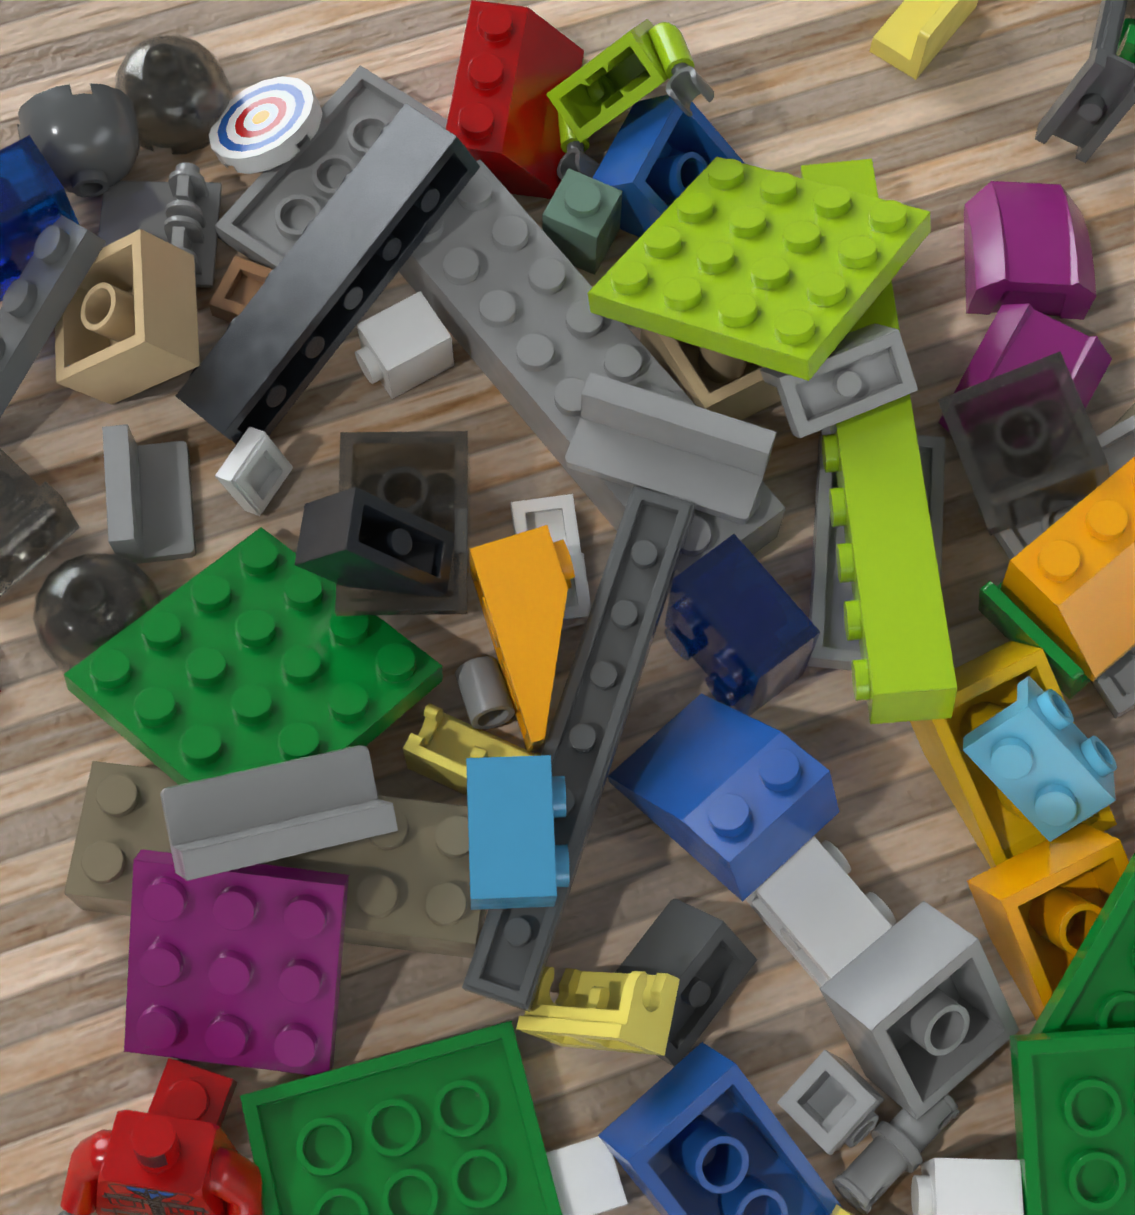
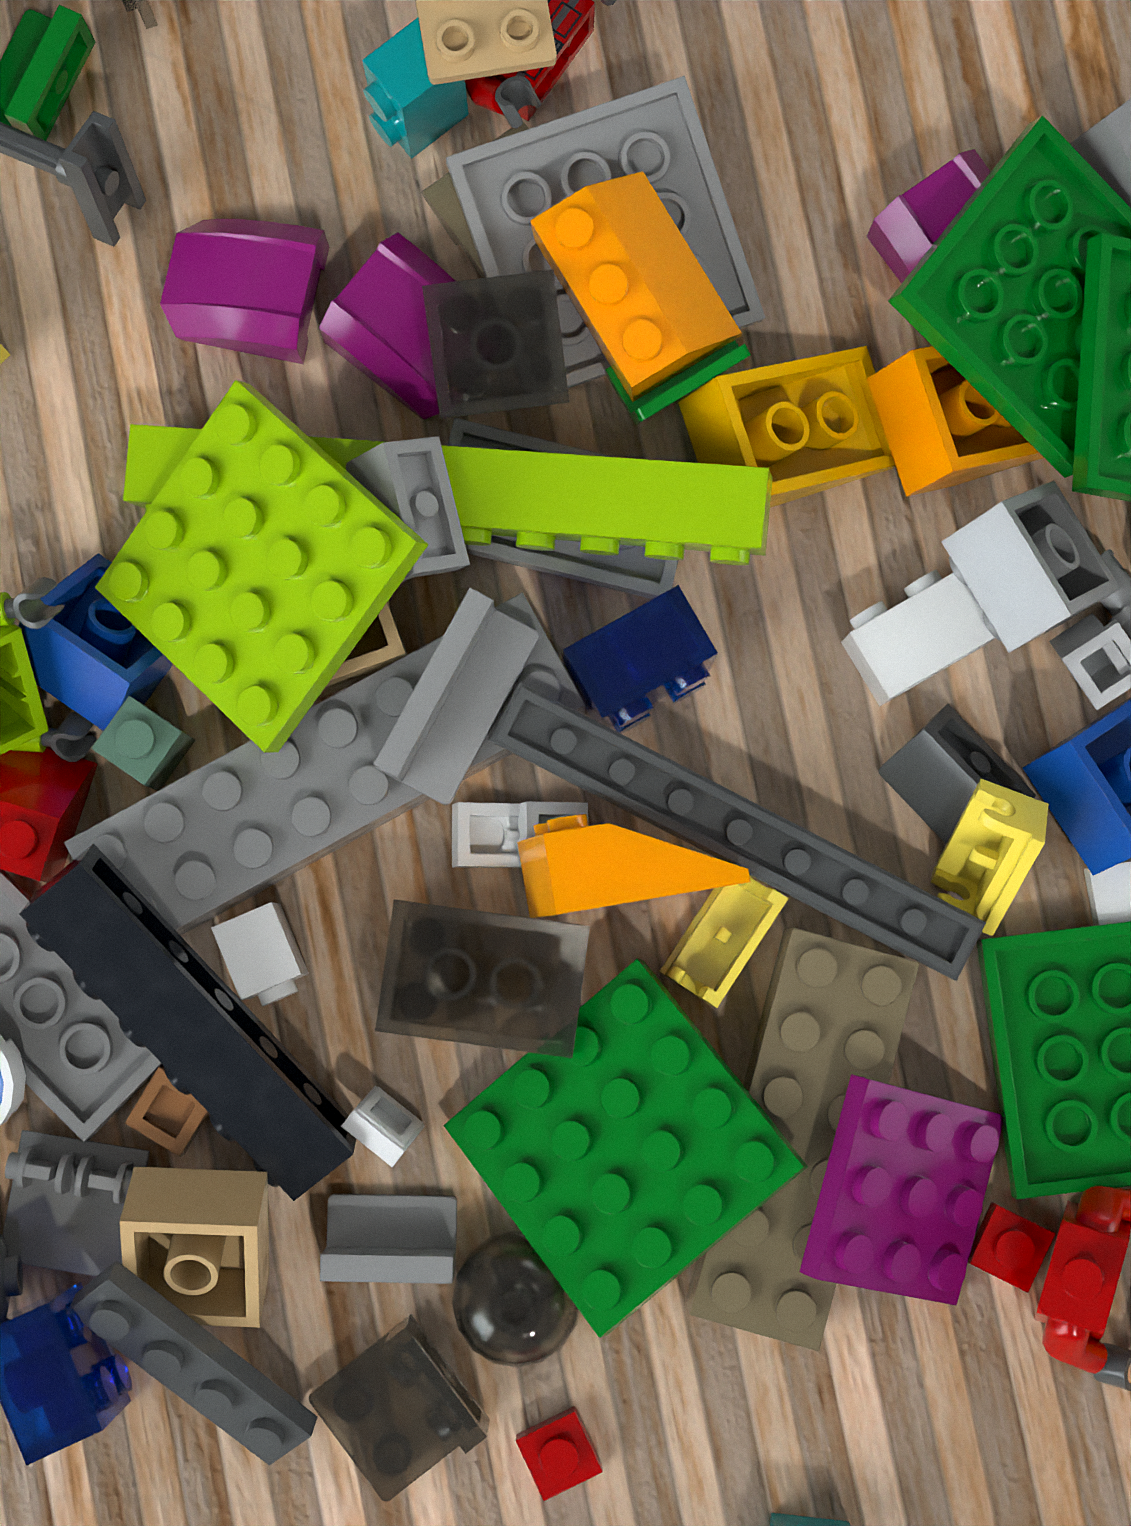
camera: 80 degrees left, 15 degrees up
(274, 812) = (798, 1137): light grey panel -> none
(374, 545) = (522, 1010): black slope -> none
(484, 693) = (655, 920): light grey hinge -> none
(513, 832) = (836, 912): dark azure brick -> none
(729, 791) = (794, 705): blue slope -> none
(1044, 761) = (818, 399): medium azure bracket -> none

